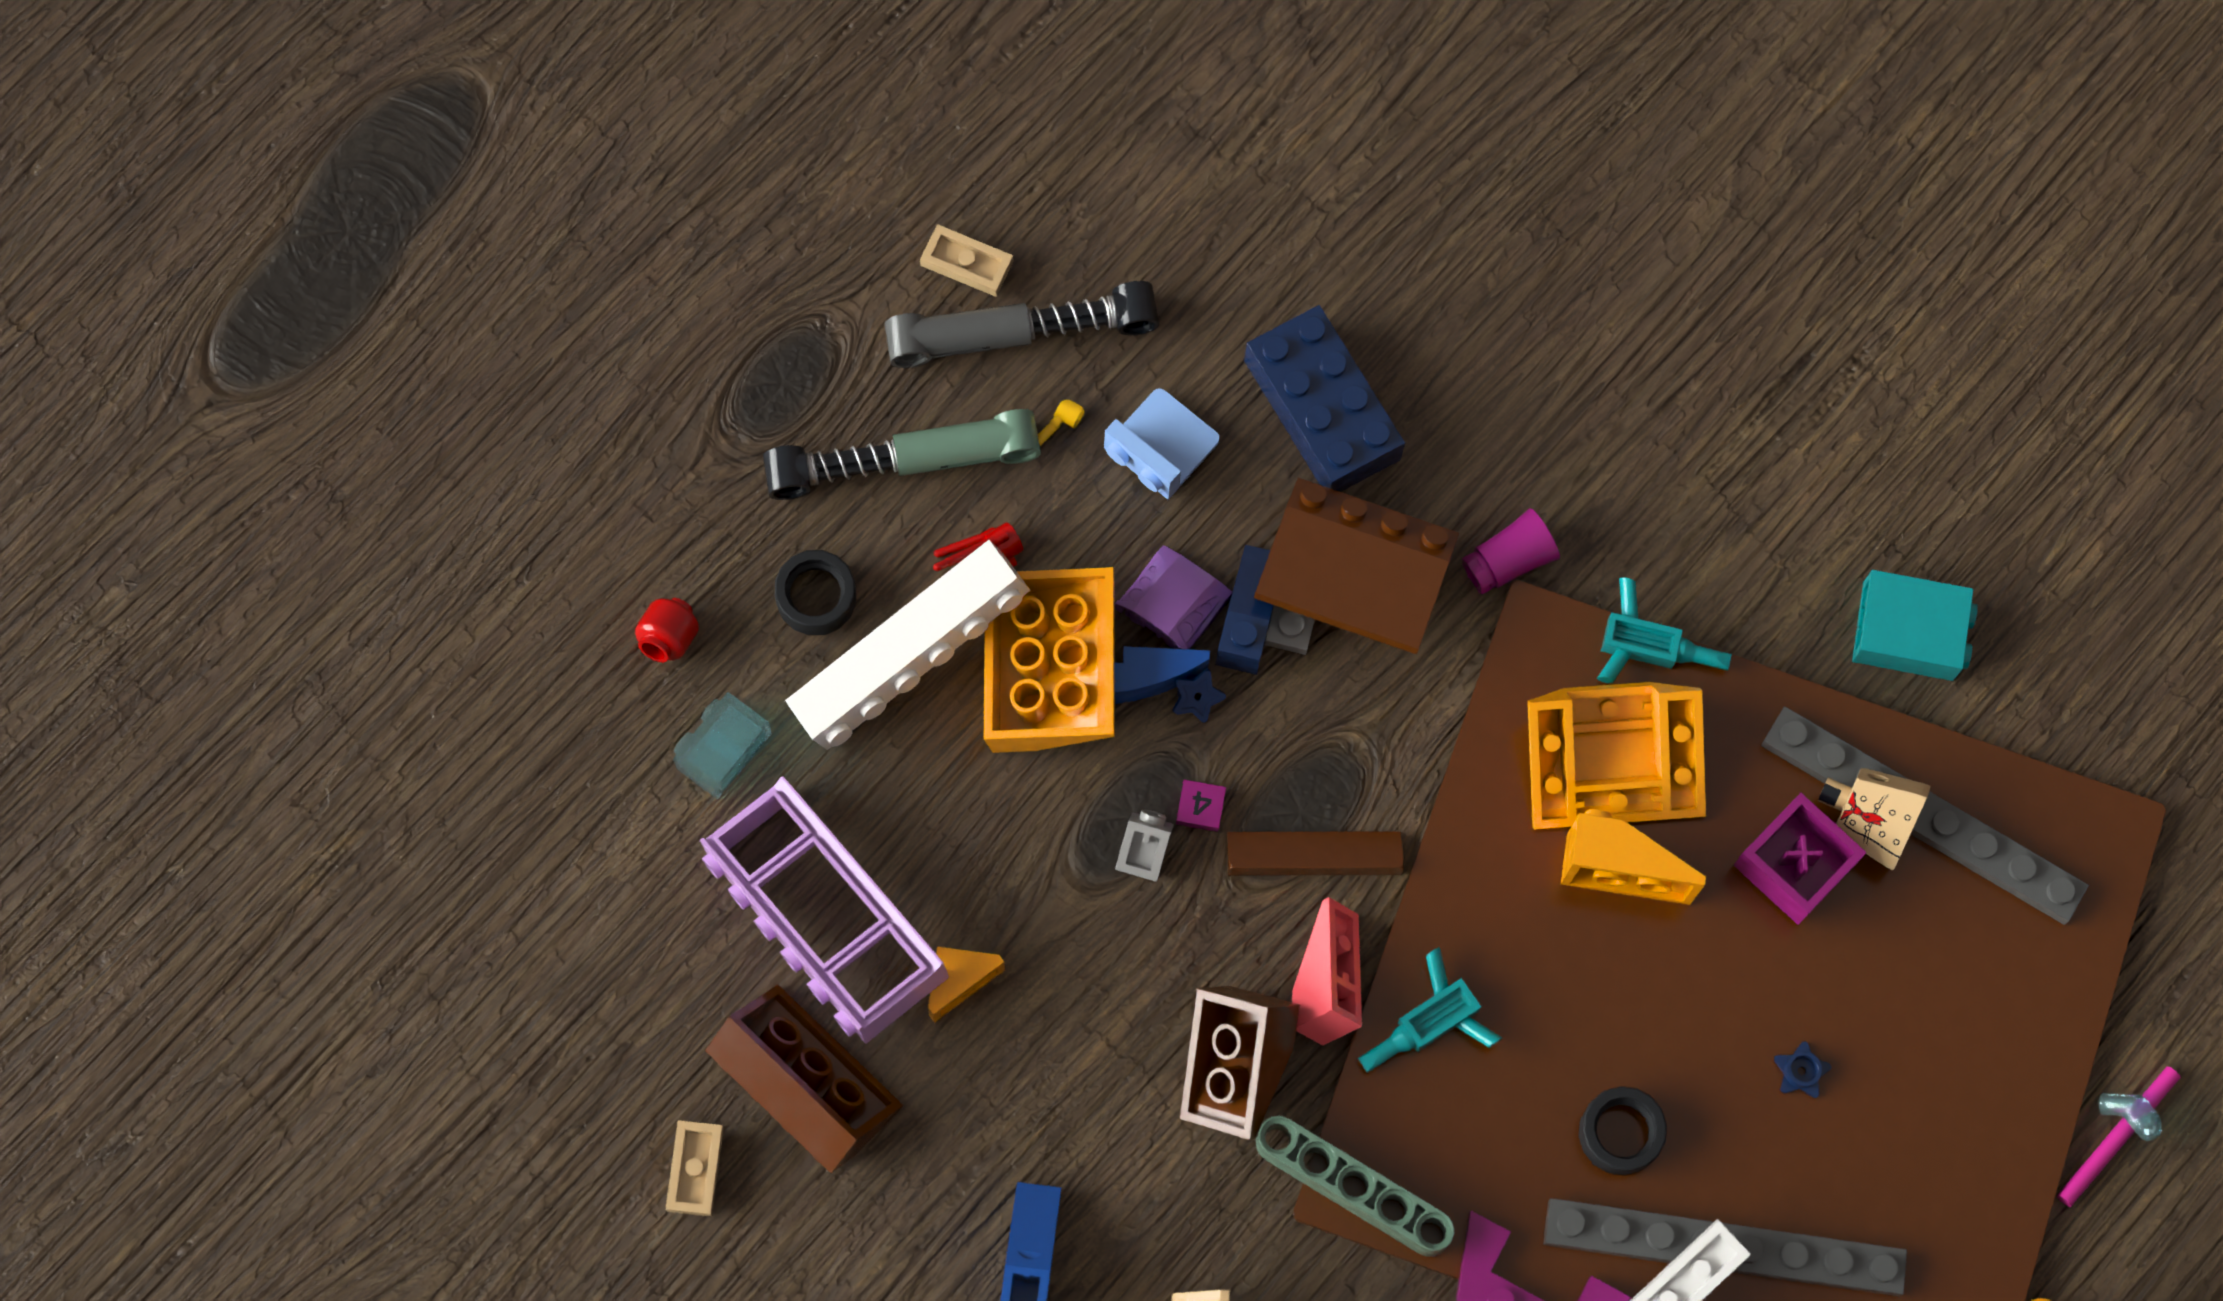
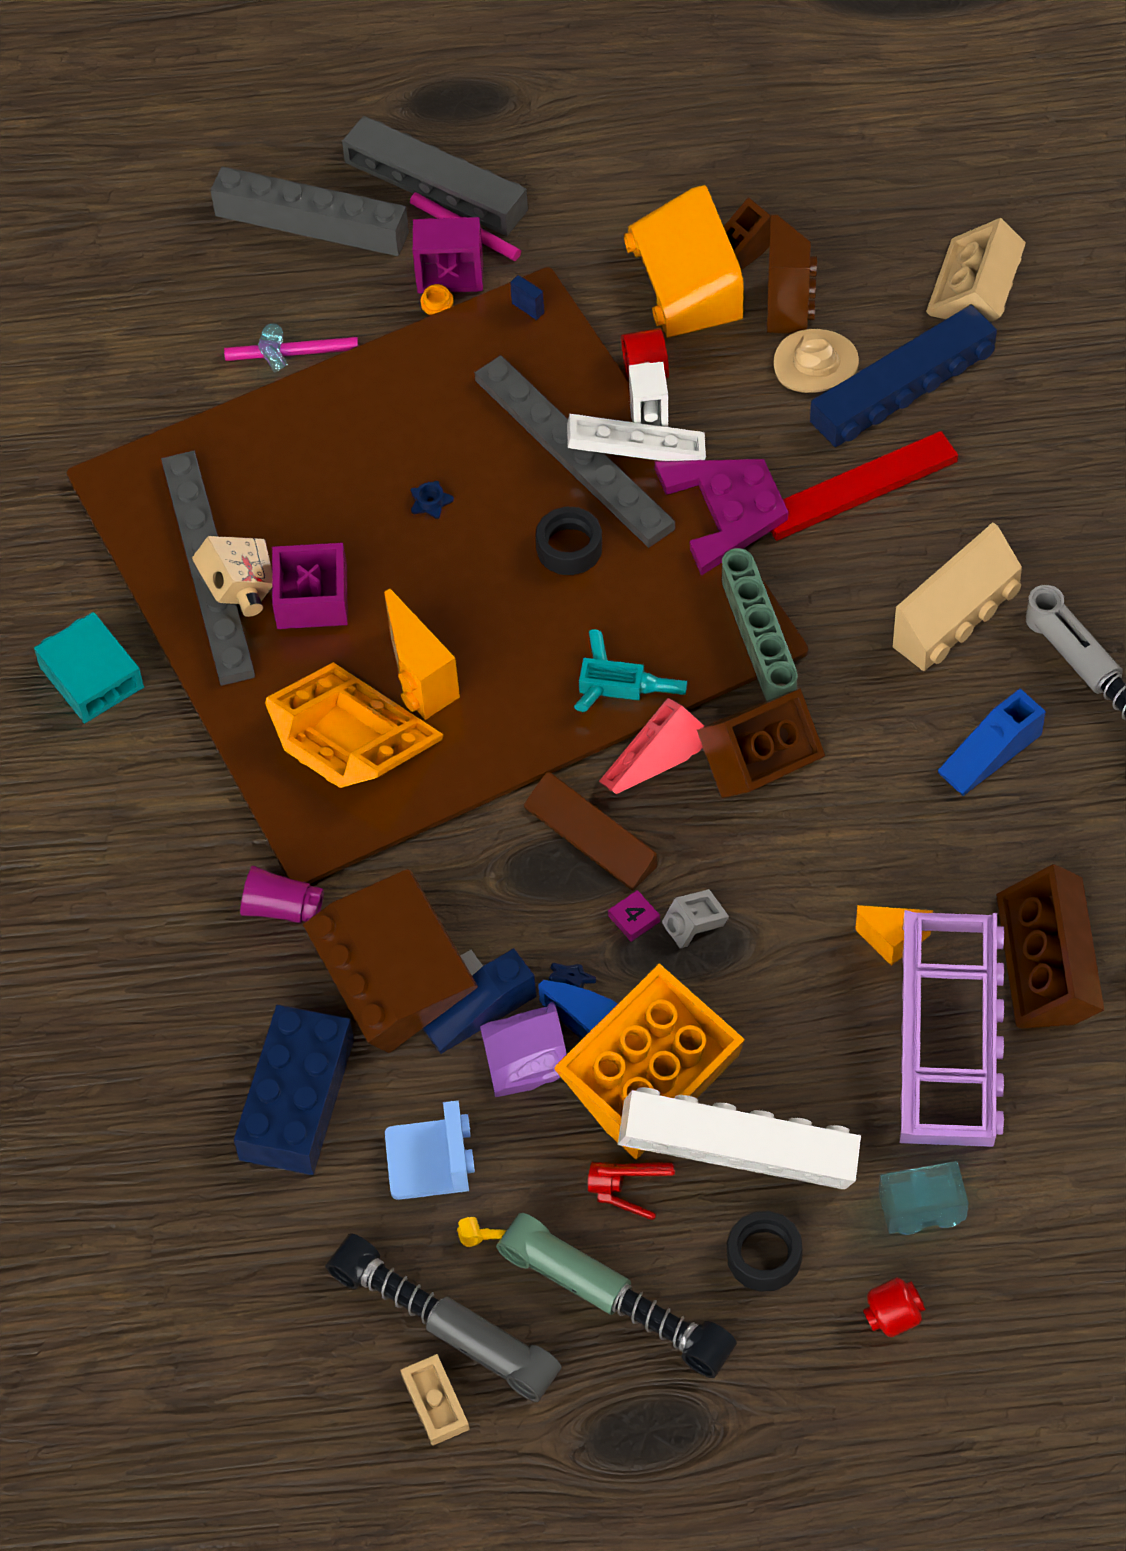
camera: 130 degrees left, 15 degrees down
(1649, 642) = (257, 778): teal piece -> none

